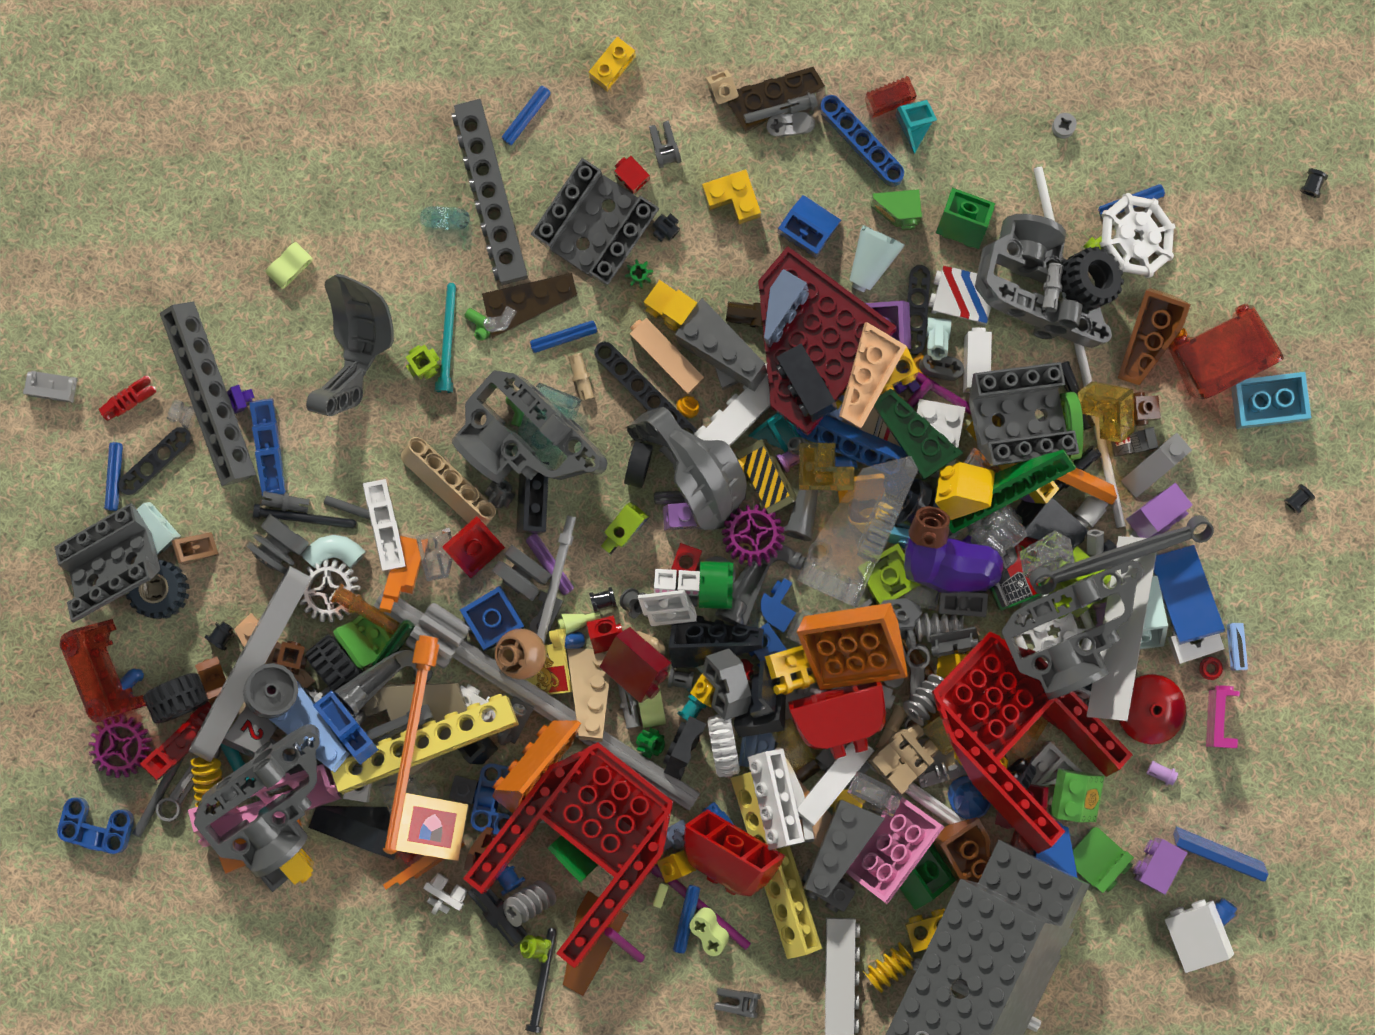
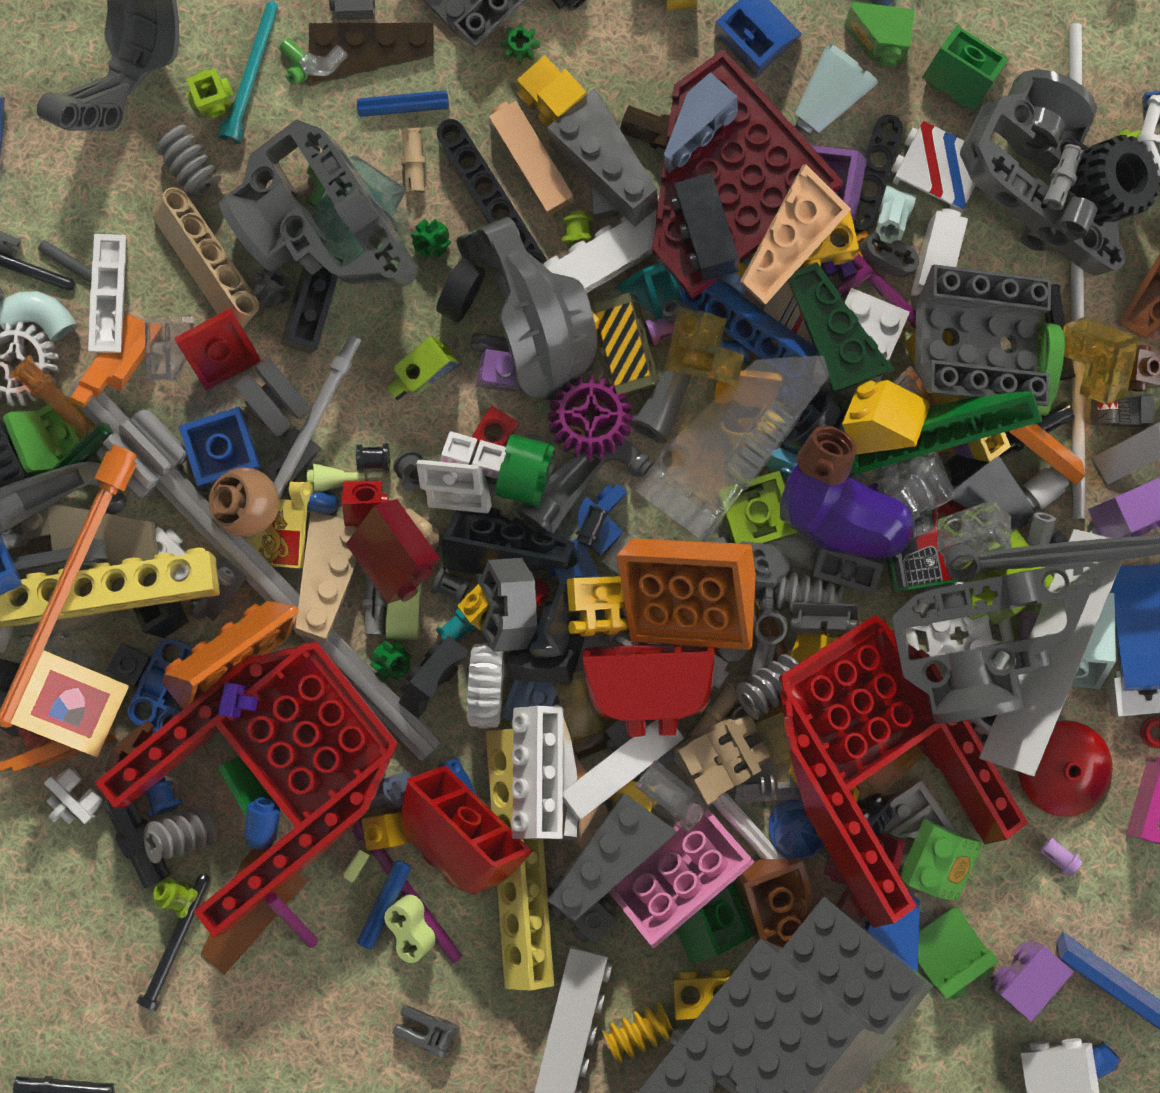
camera: 10 degrees right, 0 degrees up
(418, 416) = (185, 163): none -> light grey piece
(548, 561) = (311, 390): medium lavender axle -> none
(550, 797) = (234, 700): none -> dark purple tile
(589, 880) = (261, 823): none -> blue brick
(607, 431) = (430, 238): none -> green gear
(688, 406) = (544, 230): light orange plate -> none
(712, 400) = (577, 228): none -> lime brick
(773, 614) = (591, 526): none -> black pin

